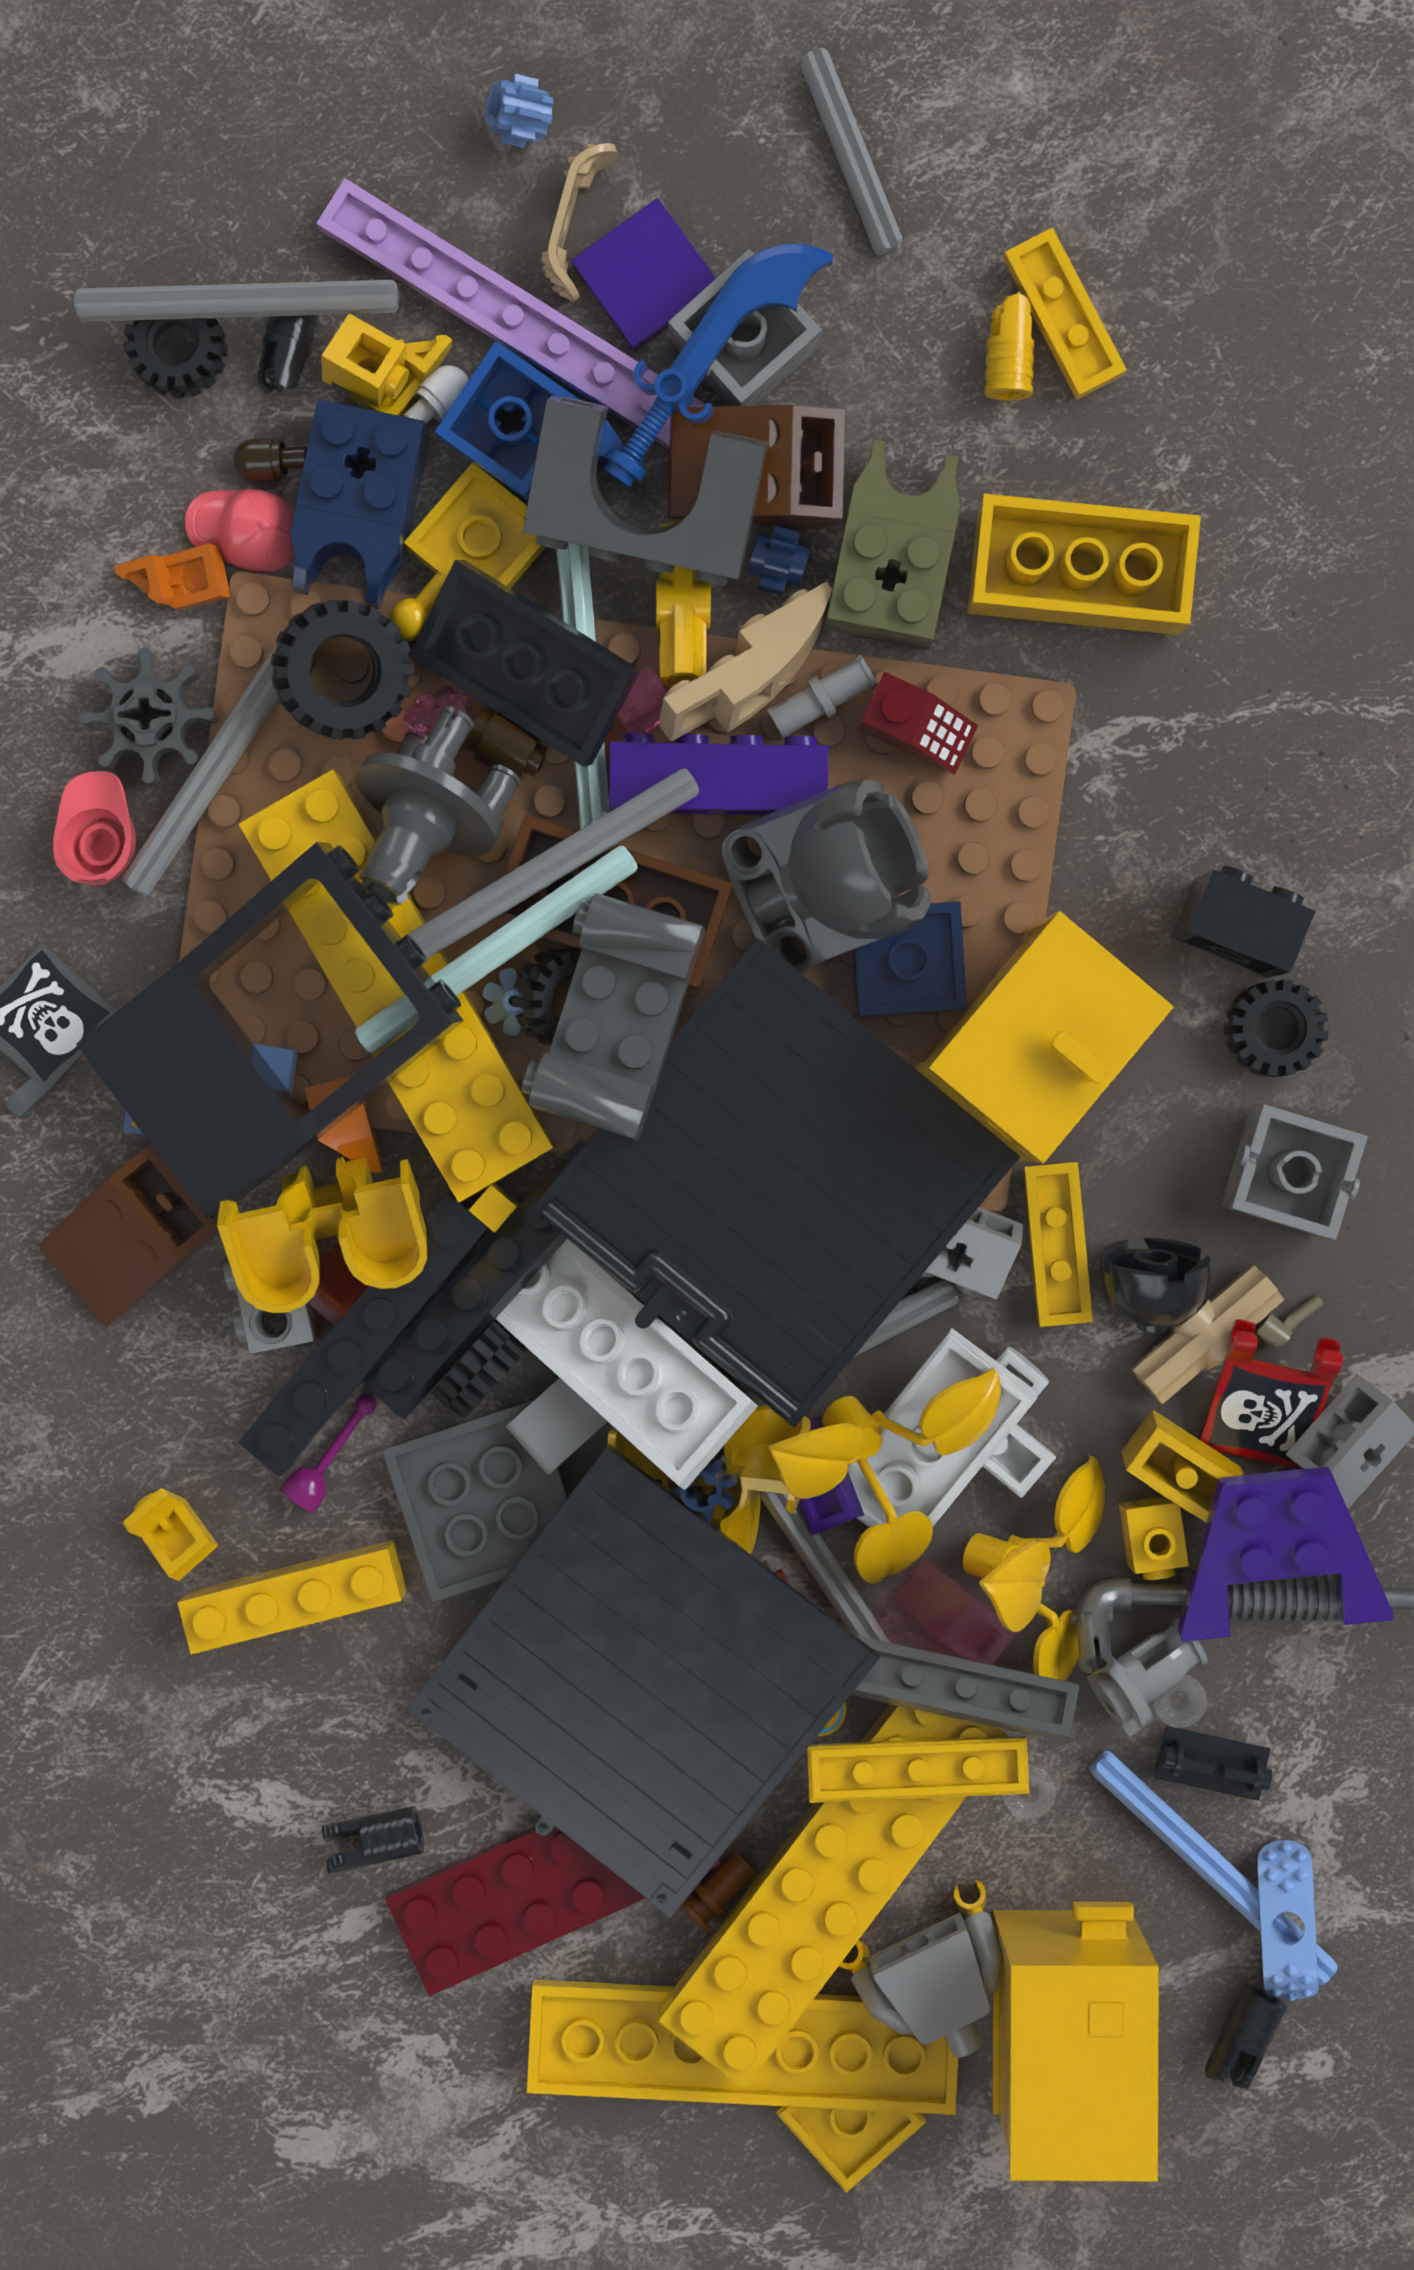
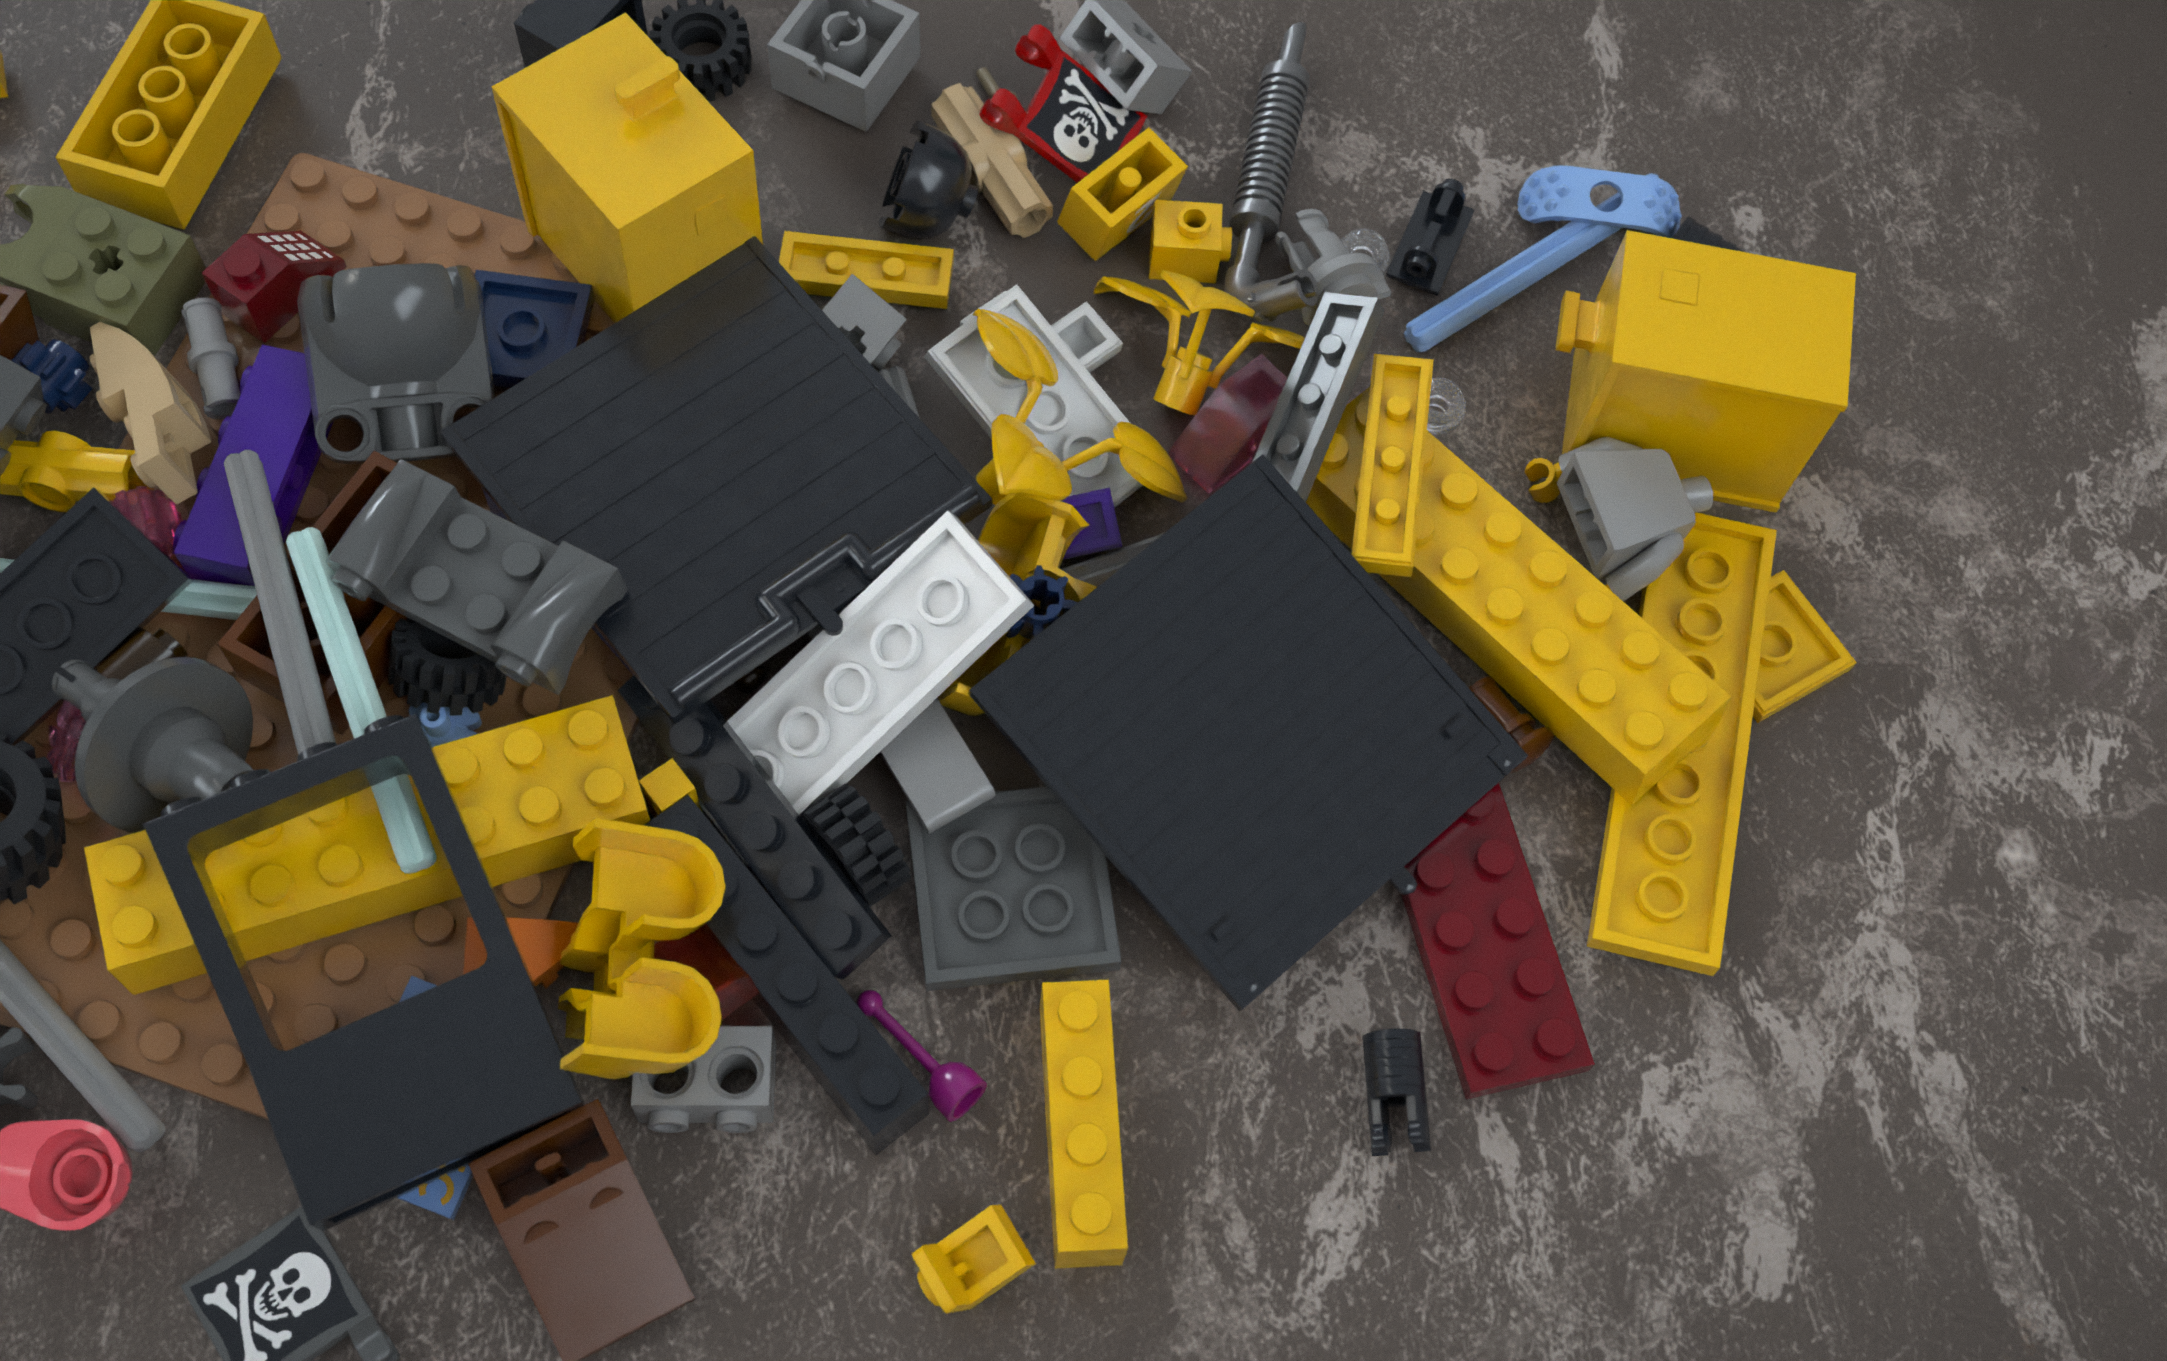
camera: 90 degrees left, 25 degrees down
(1274, 1531) = (1198, 115): dark purple wing -> none

